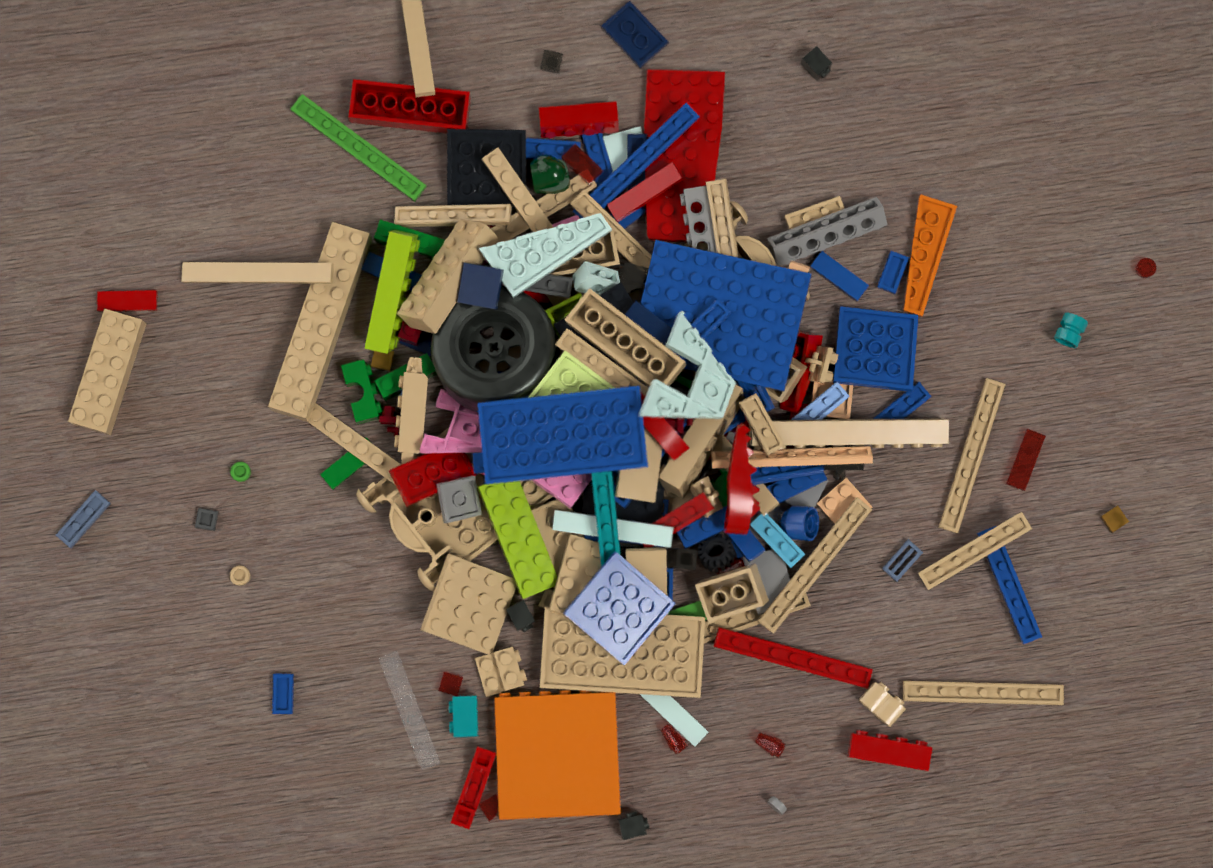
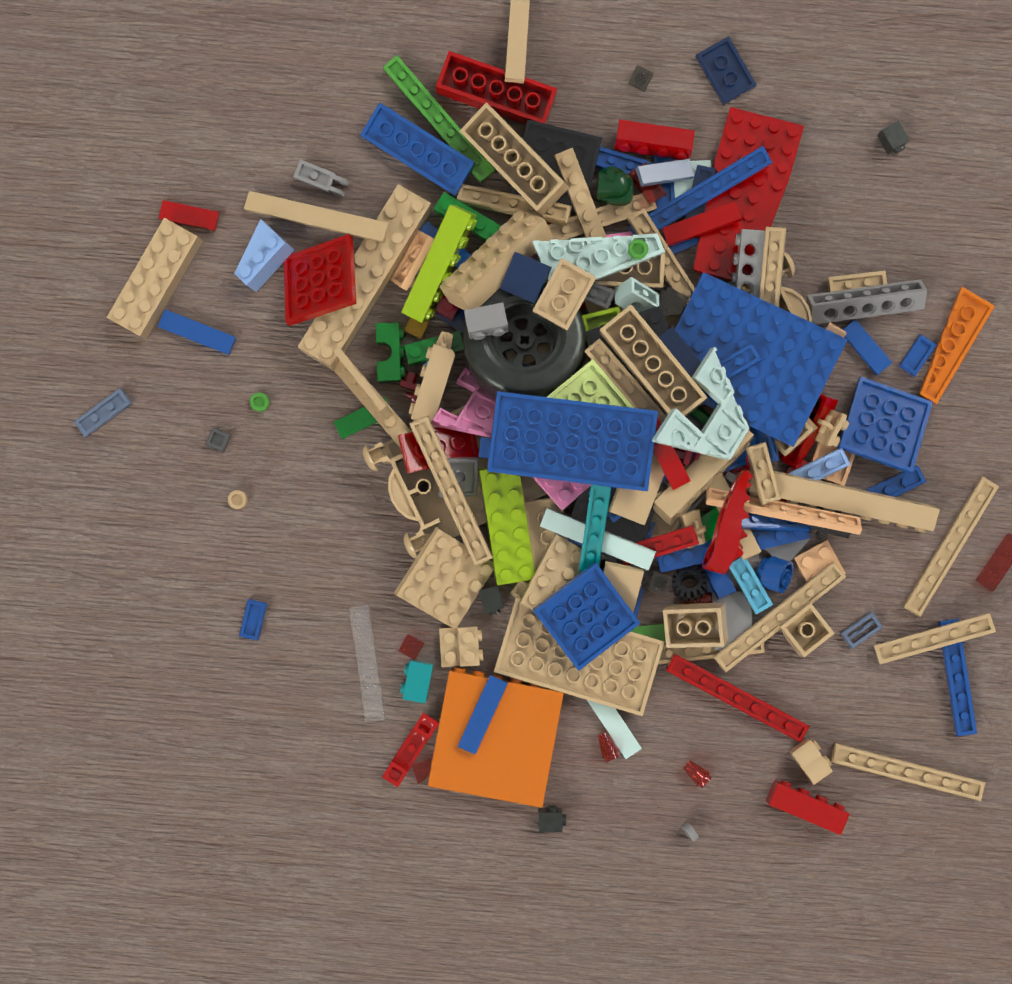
camera: 15 degrees right, 5 degrees up
(161, 416) = (197, 332): none -> blue tile
(211, 325) = (262, 256): none -> light blue wedge
(251, 233) = (319, 177): none -> light grey hinge
(275, 335) = (319, 280): none -> red plate
(342, 427) = (363, 383): none -> tan tile
(343, 182) = (417, 149): none -> blue plate
(363, 294) = (412, 260): none -> light nougat plate
(443, 171) = (514, 159): none -> tan brick
(451, 337) = (486, 321): none -> light grey brick
(454, 513) = (451, 490): none -> tan tile
(521, 293) = (564, 294): none -> tan plate
(538, 733) = (482, 714): none -> blue tile
(584, 233) = (638, 249): none -> bright green tile
(596, 149) = (665, 172): none -> tile
(844, 572) = (806, 630): none -> tan slope

